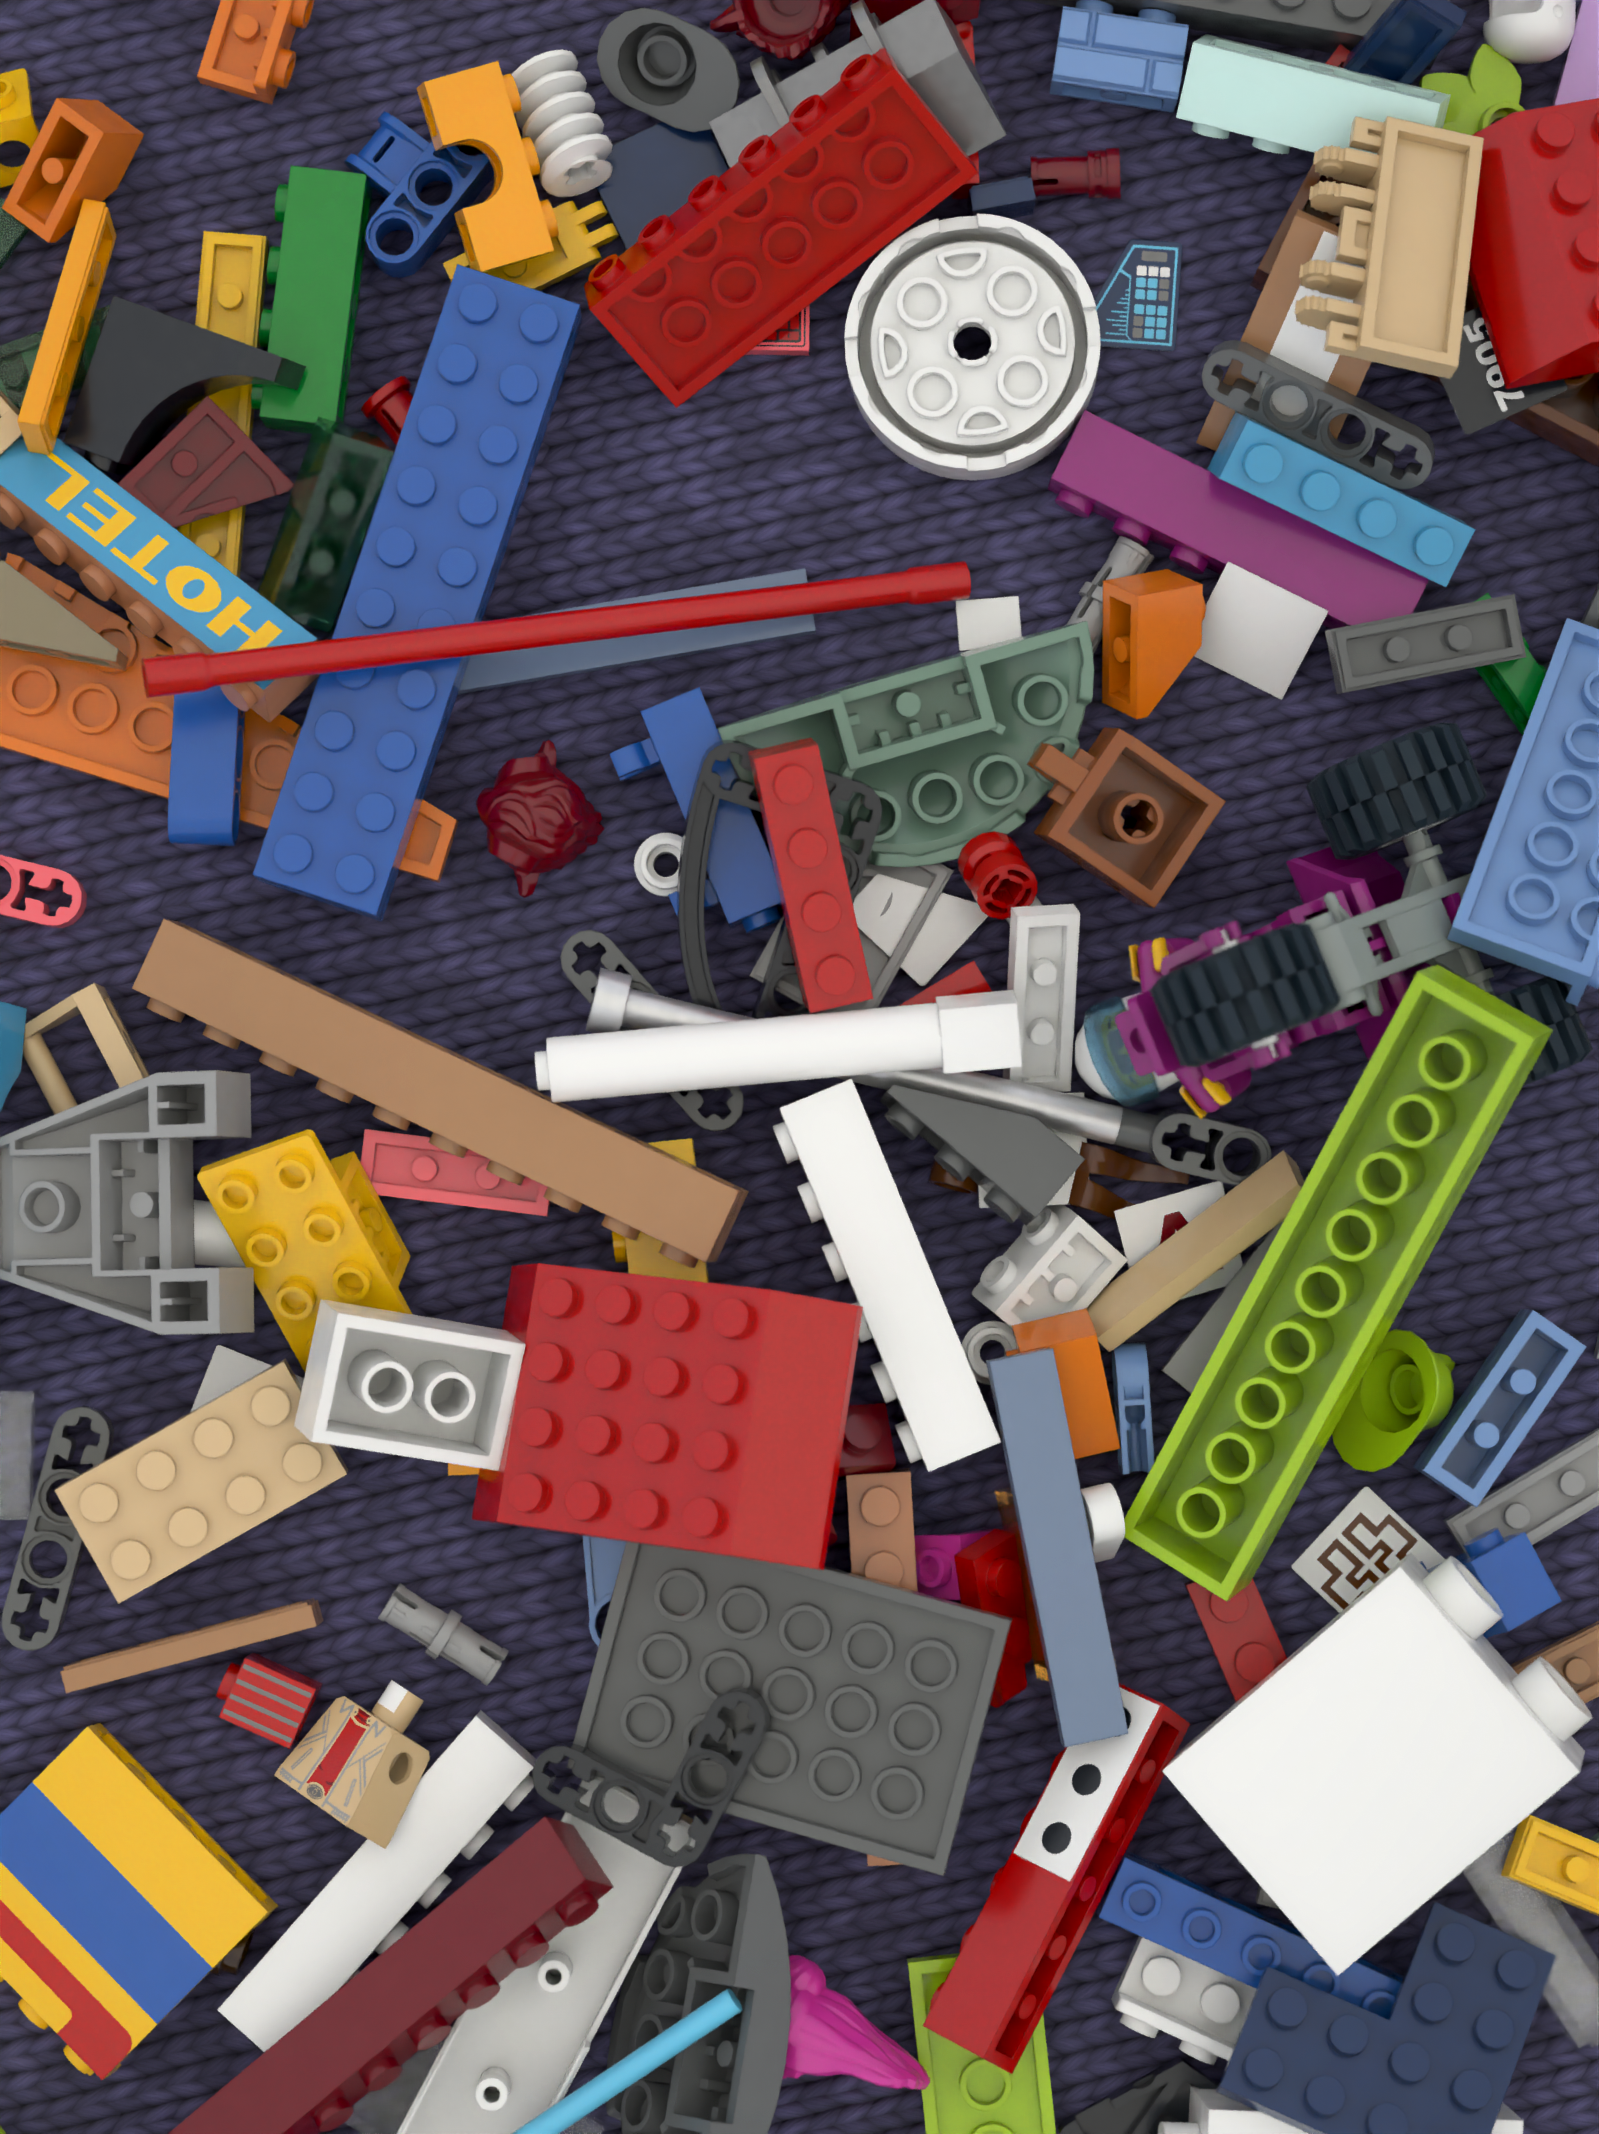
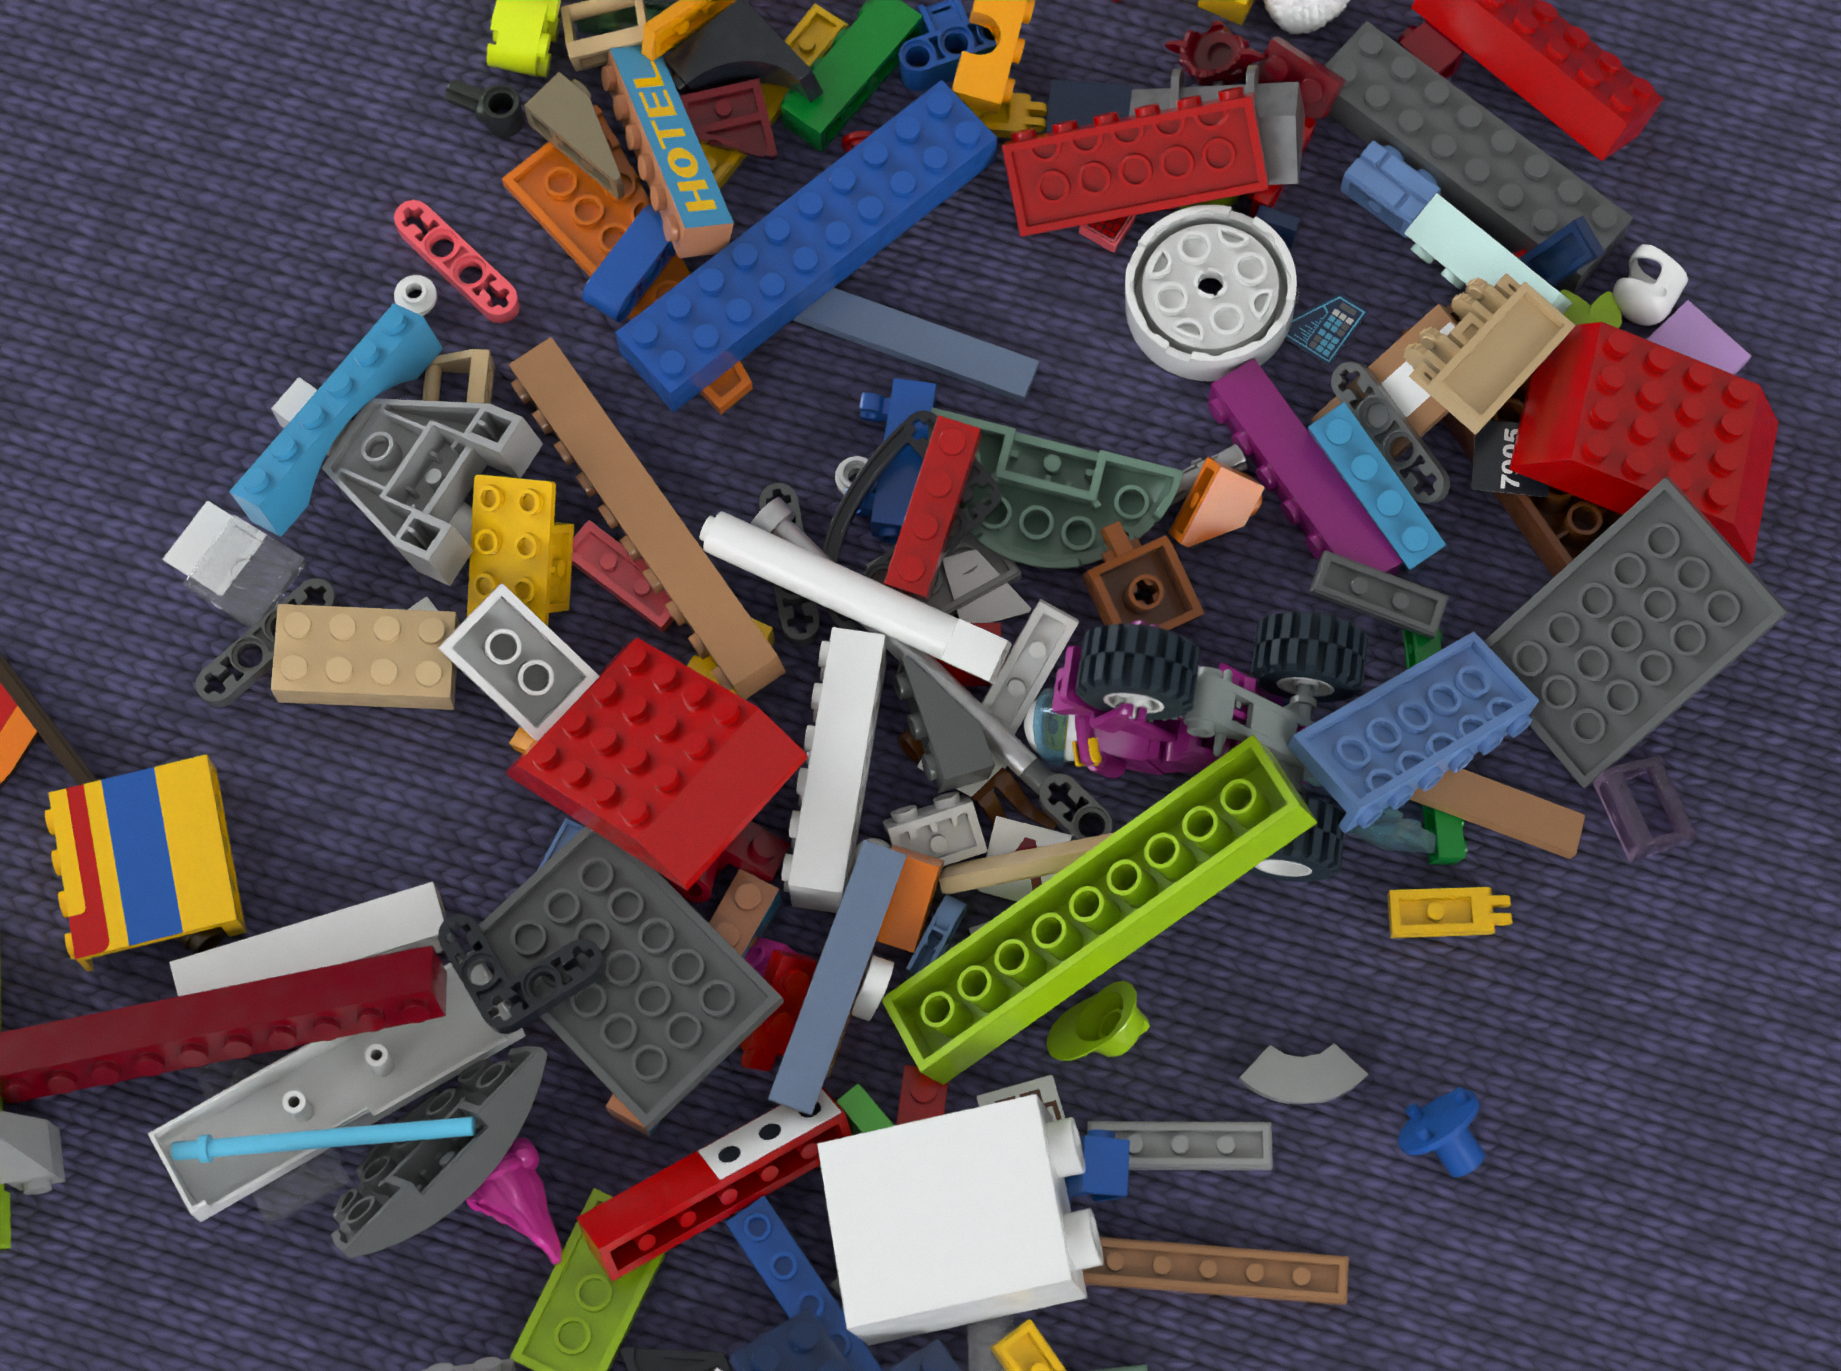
camera: 30 degrees right, 15 degrees down
(191, 1645) = (297, 750): medium nougat tile -> none
(202, 671) = (657, 194): red piece -> none
(267, 1699) = (320, 807): red brick -> none
(325, 523) = (781, 177): clear green brick -> none
(361, 1763) = (349, 869): tan torso -> none
(443, 1634) = (446, 831): light grey pin -> none
(536, 817) = (799, 407): dark red hair -> none
(562, 124) = (1048, 49): white piece -> none
(668, 68) = (1126, 52): dark grey piece -> none
(987, 621) = (1130, 447): white sticker -> none
(997, 874) = (1046, 574): red wheel -> none
(1070, 175) = (1338, 243): dark red pin -> none
(1182, 1999) = (743, 1305): white bracket -> none
(1183, 1685) = (862, 1112): none -> bright green piece
(1257, 630) = (1282, 538): white sticker -> none
(1499, 1407) = (1160, 1065): medium blue brick -> none

